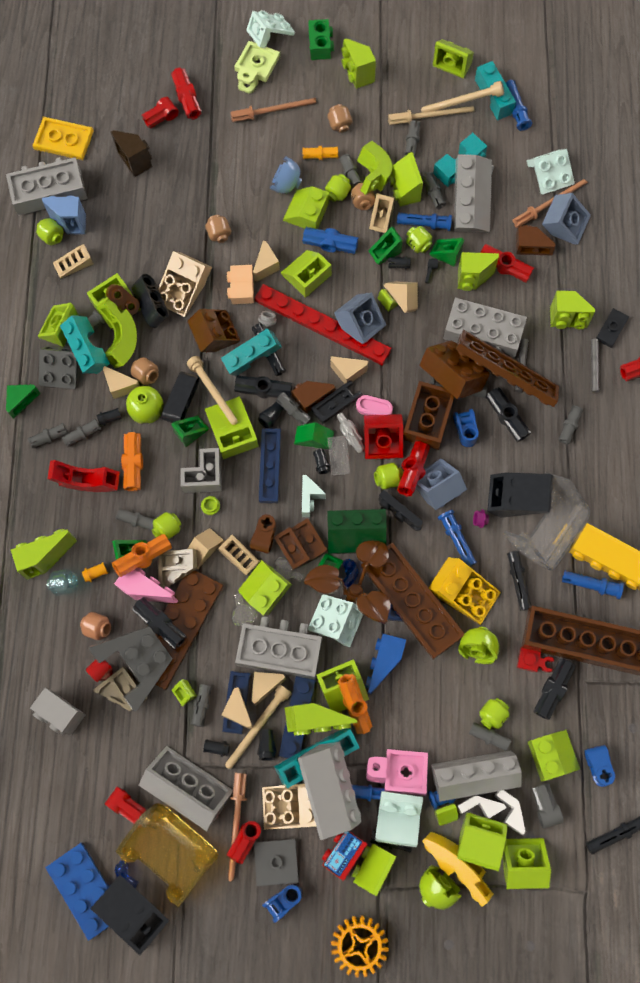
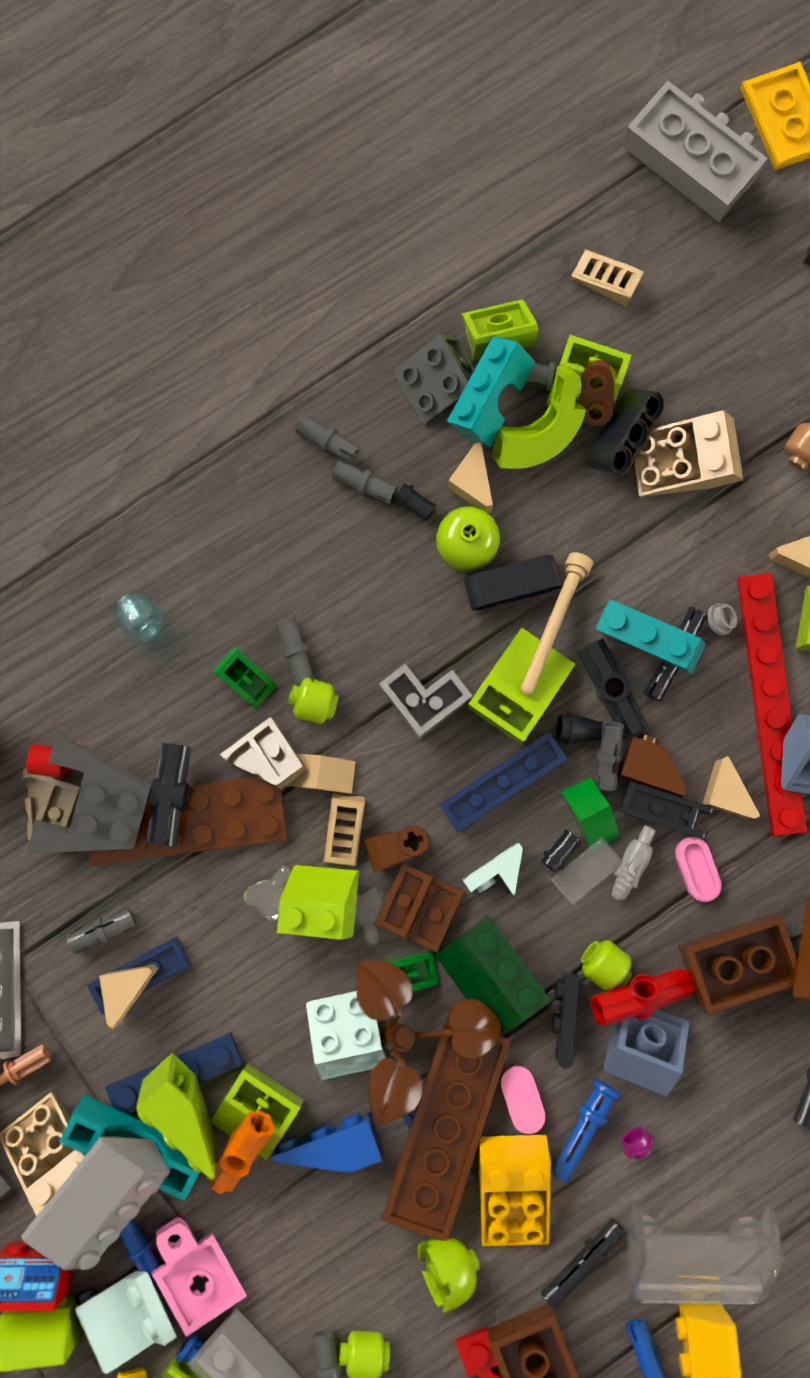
camera: 55 degrees right, 10 degrees up
(19, 398) = (353, 359): green slope -> none
(40, 555) = (147, 561): lime slope -> none
(50, 231) = (629, 209): lime head -> none
(67, 213) = (672, 212): medium blue slope -> none
(83, 479) = (301, 535): red arch -> none
(94, 572) = (183, 649): light orange pin -> none
(95, 626) = (110, 707): nougat head -> none
(132, 461) = (373, 584): orange piece -> none
(139, 586) = (203, 725): bright pink slope -> none
(141, 555) = (225, 693): orange piece -> none
(144, 371) = (515, 502): medium nougat head -> none
(184, 692) = (105, 893): lime slope -> none
(189, 429) = (476, 630): green slope -> none
(210, 505) = (387, 739): lime plate -> none
(213, 330) = (647, 553): reddish brown slope -> none
(216, 747) = (60, 993): black pin -> none
(242, 284) = (748, 542): light nougat brick -> none
(264, 684) = (188, 1000): tan slope -> none
(267, 747) = (106, 1062): black cone -> none
(279, 649) = (247, 989): light grey piece -> none
(280, 695) = (189, 1031): tan piece -> none
(351, 572) = (429, 1008): clear blue arm -> none
(383, 436) = (662, 916): red slope -> none
(424, 558) = (522, 1099): none -> bright pink tile
(466, 424) = (768, 1024): blue piece -> none
(519, 494) = (713, 1187): black slope -> none

